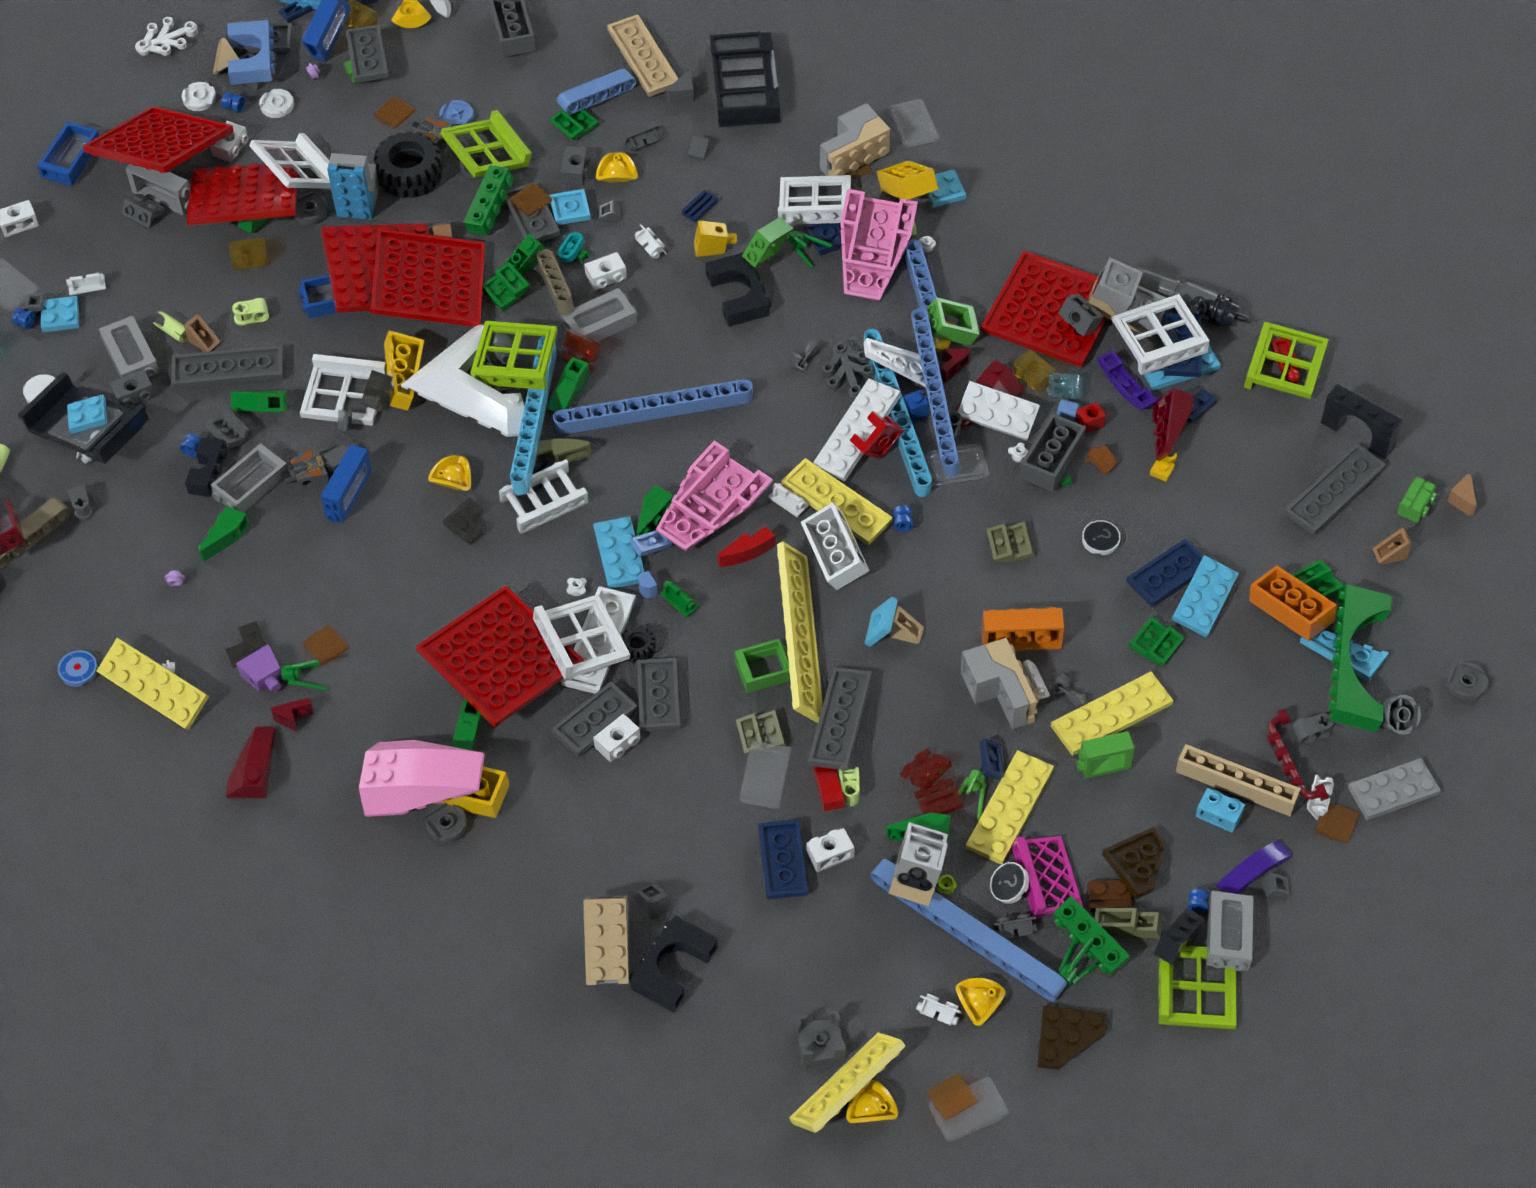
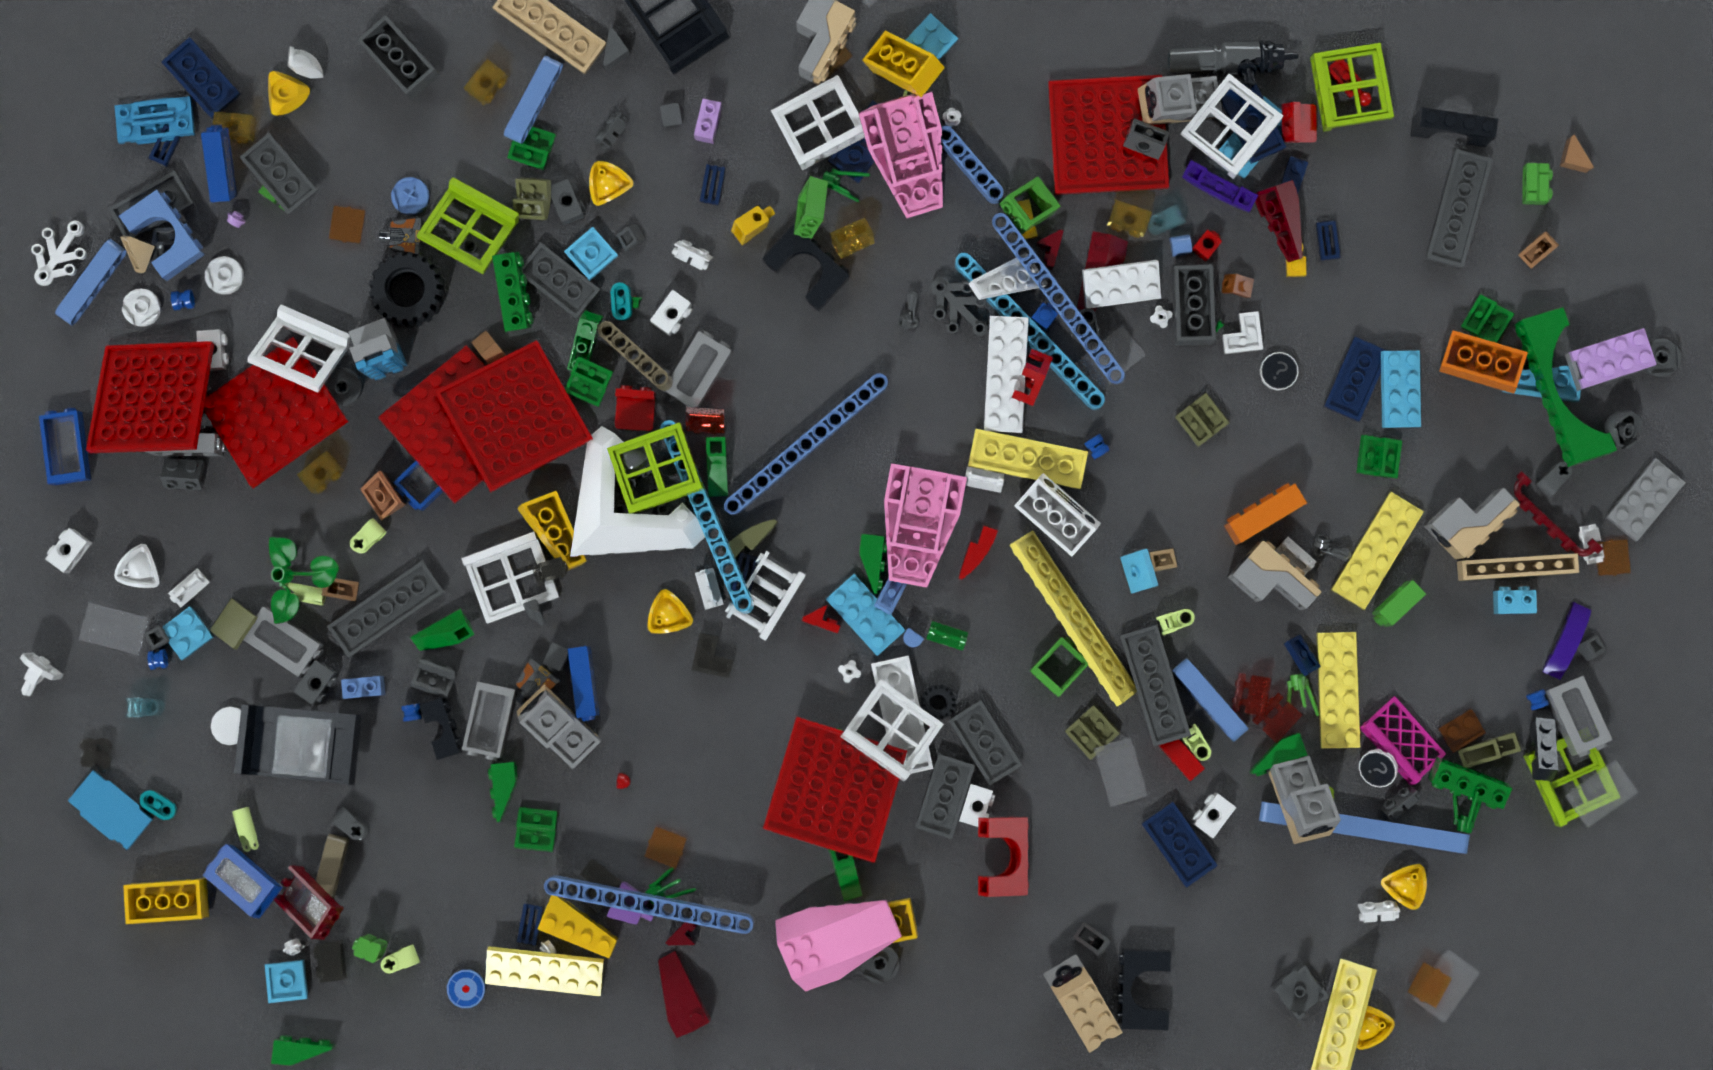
camera: 30 degrees left, 30 degrees up
(23, 591) = (369, 948): none -> bright green brick
(42, 618) = (403, 958): none -> yellowish green piece
(58, 252) = (137, 568): none -> white hat
(87, 414) = (298, 739): medium azure plate -> none
(101, 319) = (234, 624): none -> olive slope
(166, 644) = (522, 923): none -> dark blue tile
(167, 409) = (363, 687): none -> medium blue brick
(172, 294) = (282, 552): none -> green plant
(174, 63) = (91, 282): none -> medium blue beam
(174, 578) = (491, 856): lavender plate -> none
(201, 659) = (574, 926): none -> yellow wedge
(227, 578) = (536, 829): none -> green slope
(284, 671) = (639, 906): none -> medium blue beam
(285, 289) = (382, 495): none -> nougat slope
(300, 498) = (557, 726): none -> light grey piece
(325, 576) = (623, 781): none -> red hinge
(500, 471) = (709, 588): none -> white hinge
(530, 199) = (550, 267): clear orange piece -> none
(533, 312) = (635, 408): none -> red bracket
(550, 150) = (532, 198): none -> olive slope
(567, 67) = (487, 71): none -> clear yellow brick
(577, 534) = (816, 619): none -> red slope
(636, 771) = (1015, 877): none -> red arch
(724, 161) = (708, 121): none -> lavender brick
(796, 277) = (852, 238): none -> clear yellow brick
(884, 756) = (1210, 700): none -> medium blue beam
(891, 679) = (1174, 621): none -> yellowish green piece
(1067, 1034) = (1490, 877): dark brown plate -> none
(1087, 500) = (1249, 338): none -> white plate
(1137, 861) = (1472, 689): dark brown plate -> none
(1197, 475) = (1328, 246): none -> dark blue tile
(1206, 726) = (1462, 529): none -> piece
(1218, 1010) = (1601, 793): none -> clear piece
(1223, 365) = (1299, 123): none -> red bracket
(1419, 648) = (1610, 359): none -> lavender piece

